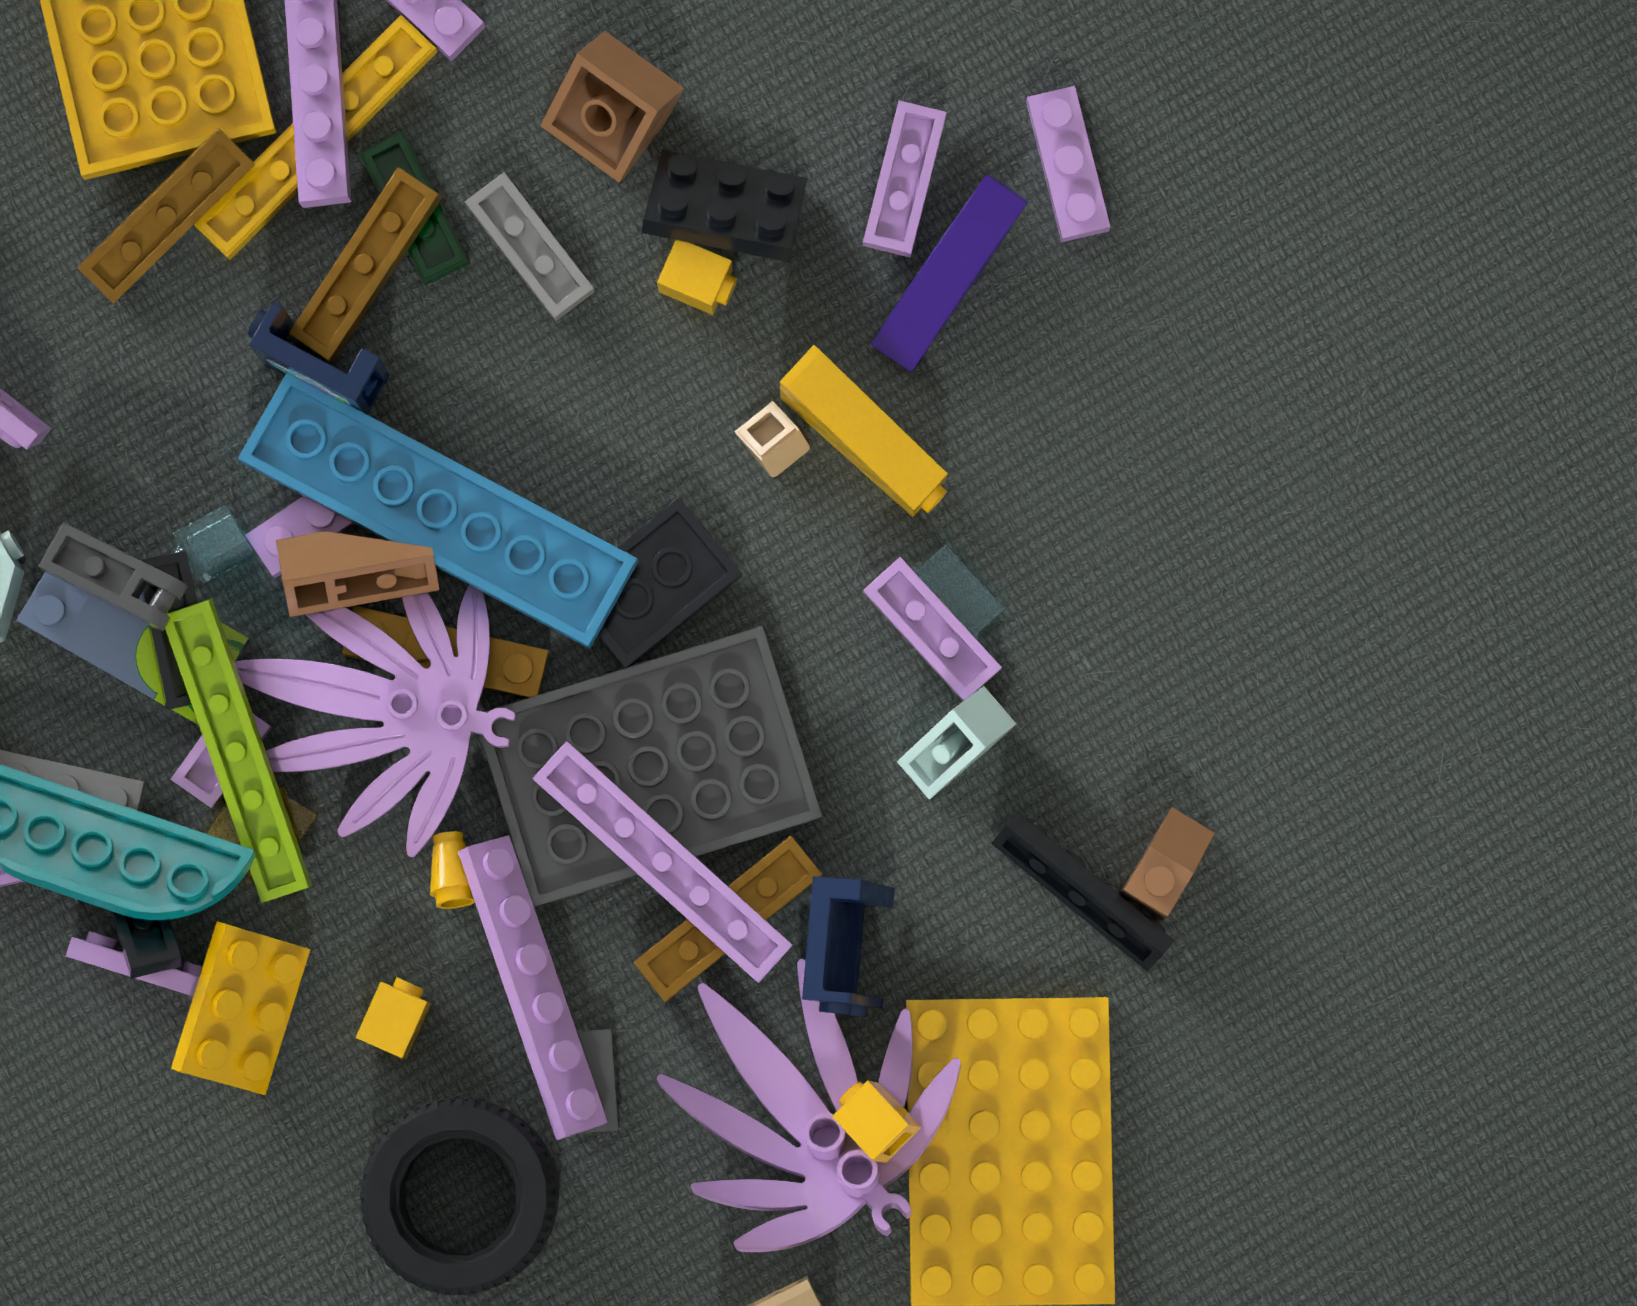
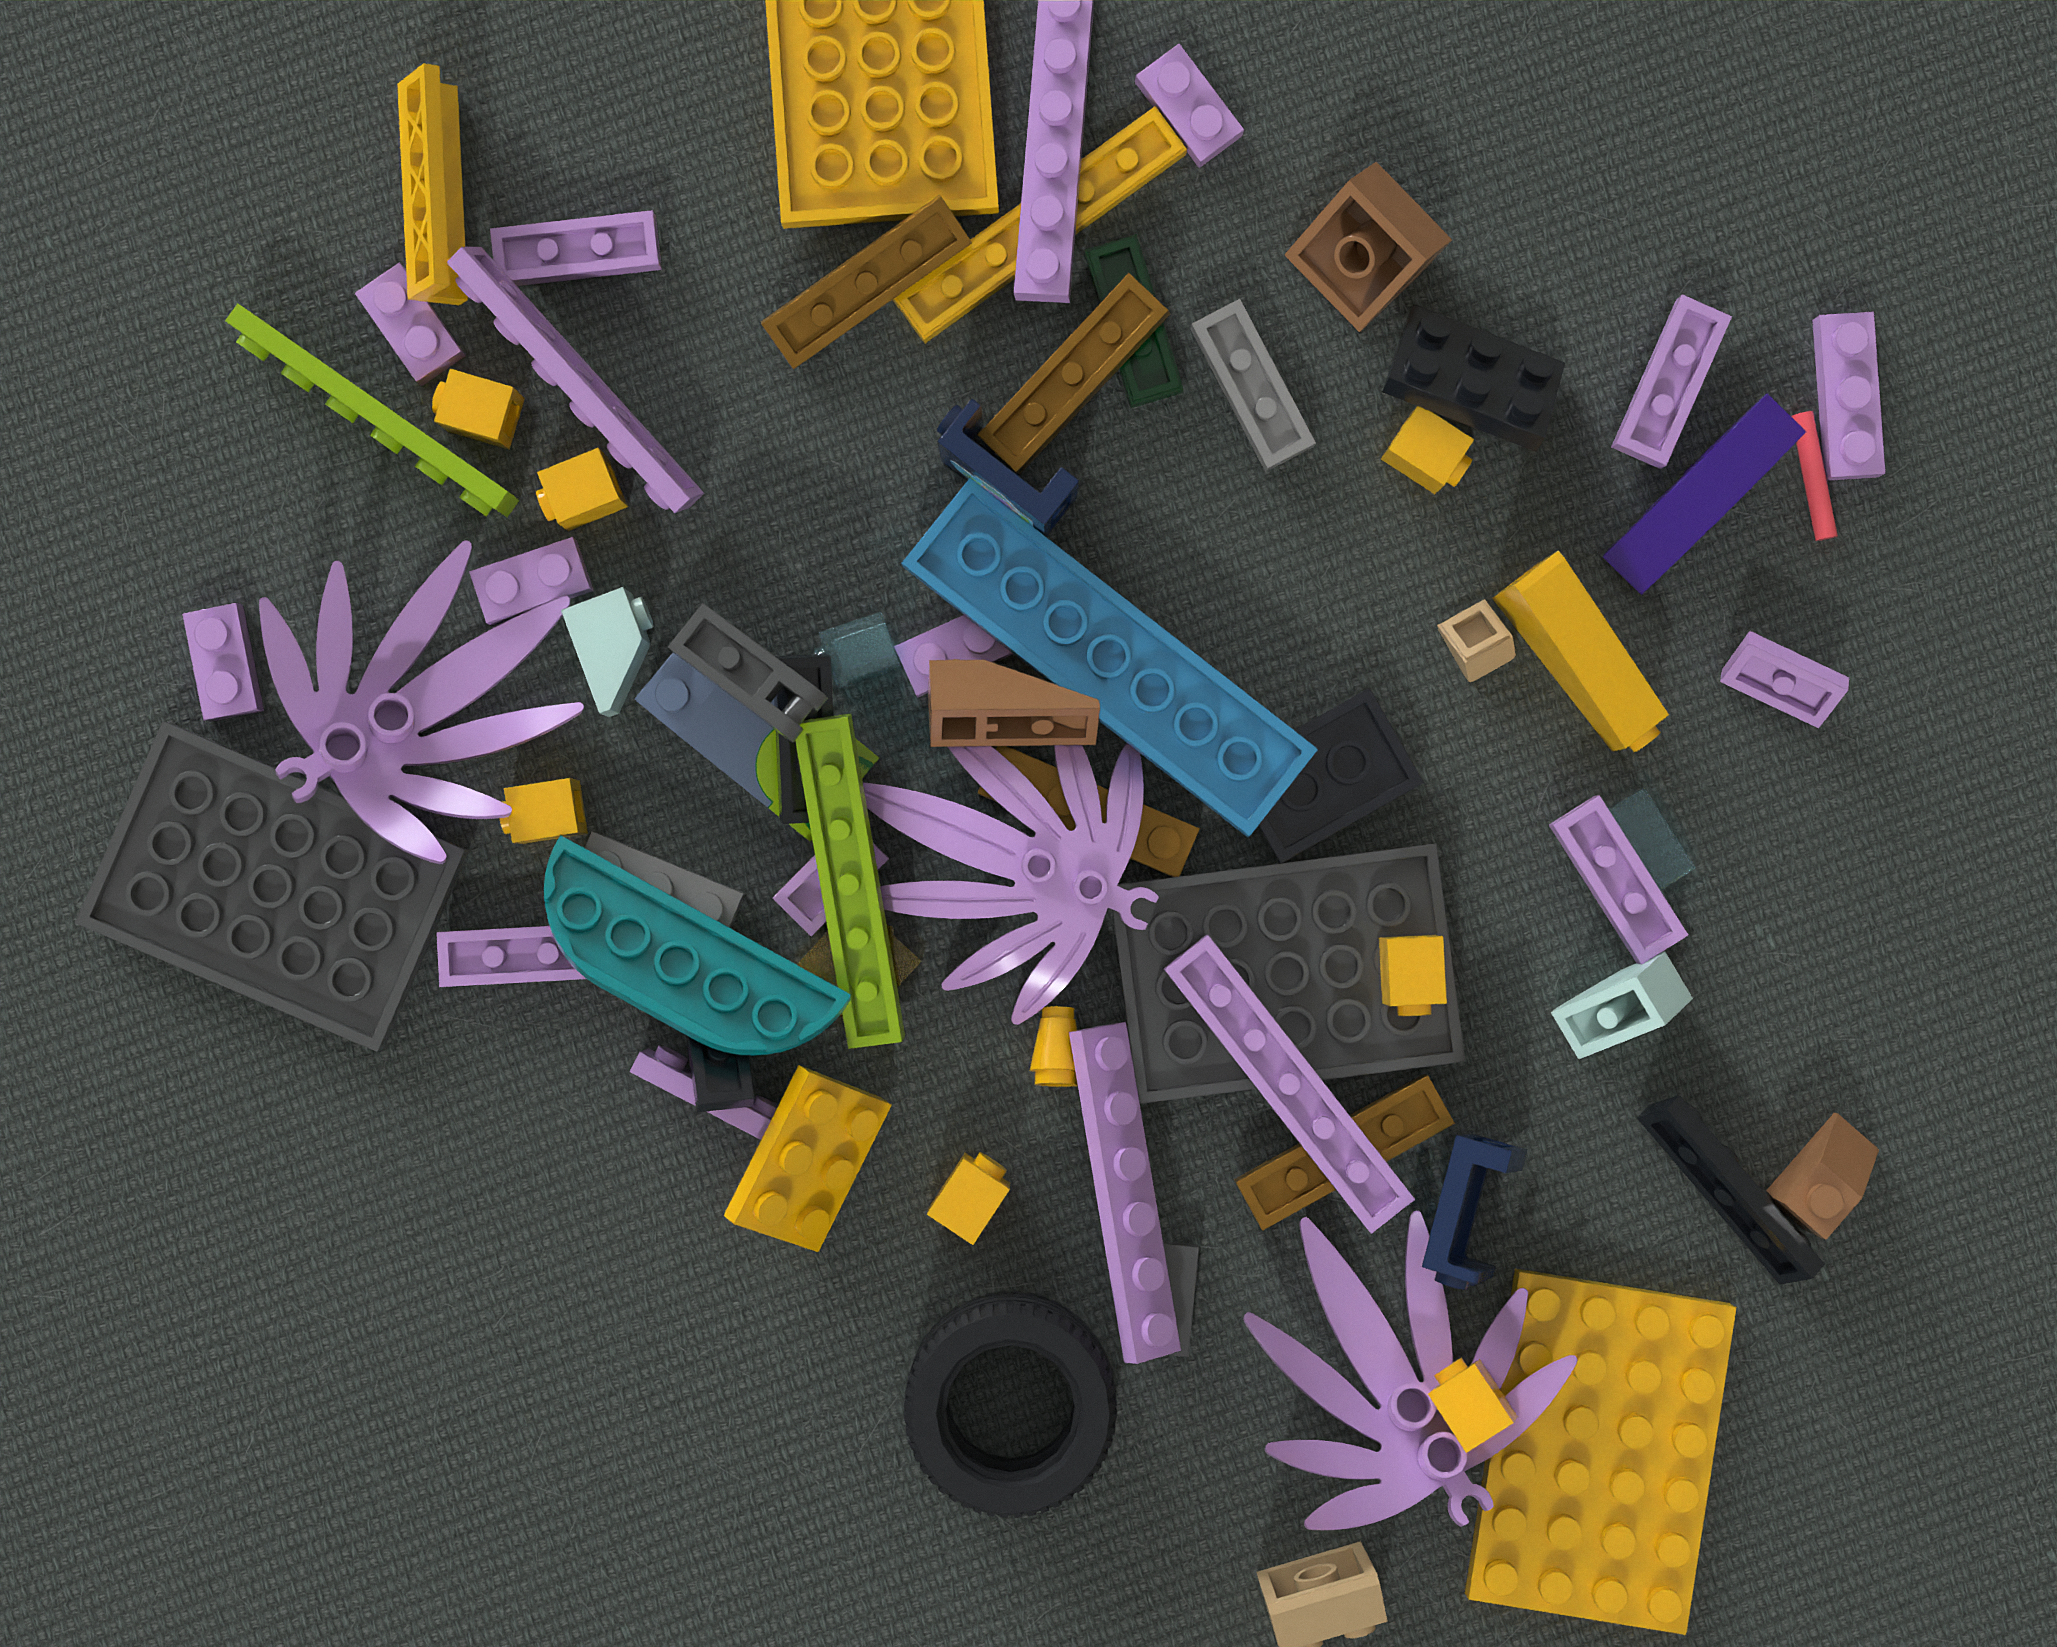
camera: 10 degrees right, 5 degrees up
(756, 743) = (1412, 973): none -> yellow brick
(1049, 240) = (1815, 478): none -> coral piece
(1051, 425) = (1784, 679): none -> lavender plate

